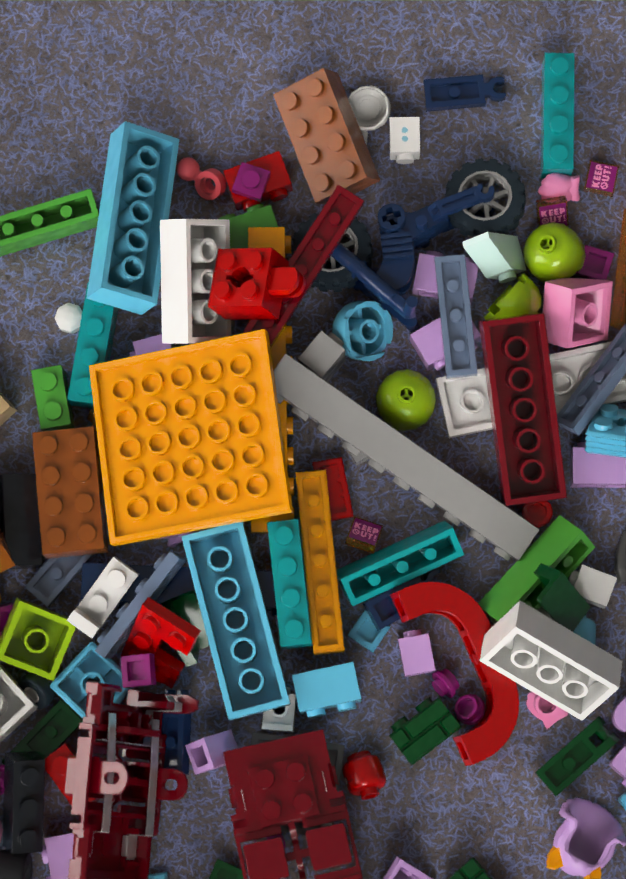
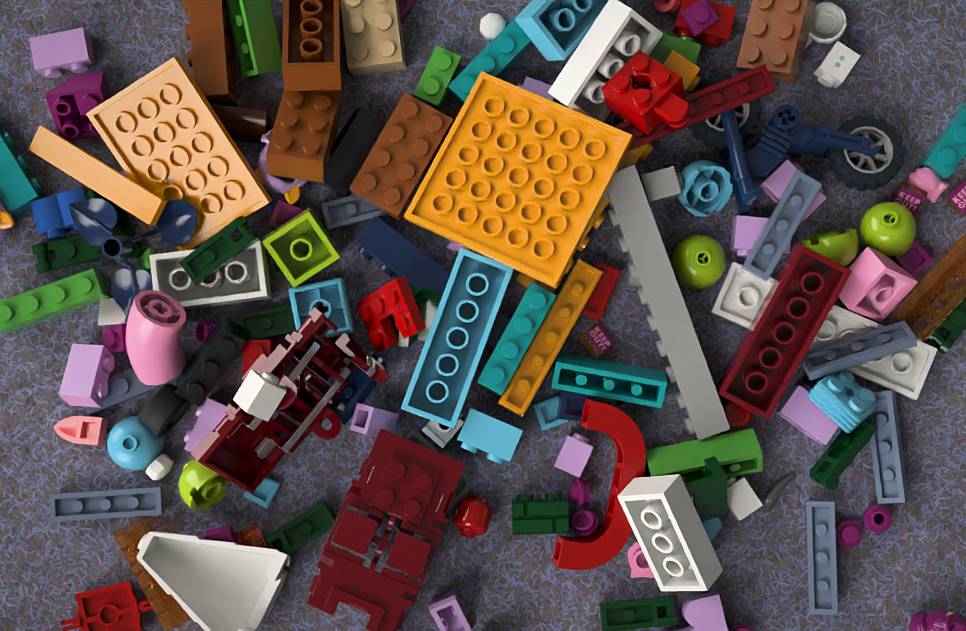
camera: 30 degrees right, 5 degrees up
(37, 689) = (278, 285): black wheel -> none
(93, 793) = (260, 394): none -> white brick
(103, 597) = (371, 251): white bracket -> none
(113, 638) = (359, 287): sand blue plate -> none
(138, 670) = (360, 324): magenta plate -> none
(460, 92) = (903, 59): dark blue plate -> none
(496, 255) = (844, 201): light aqua slope -> none

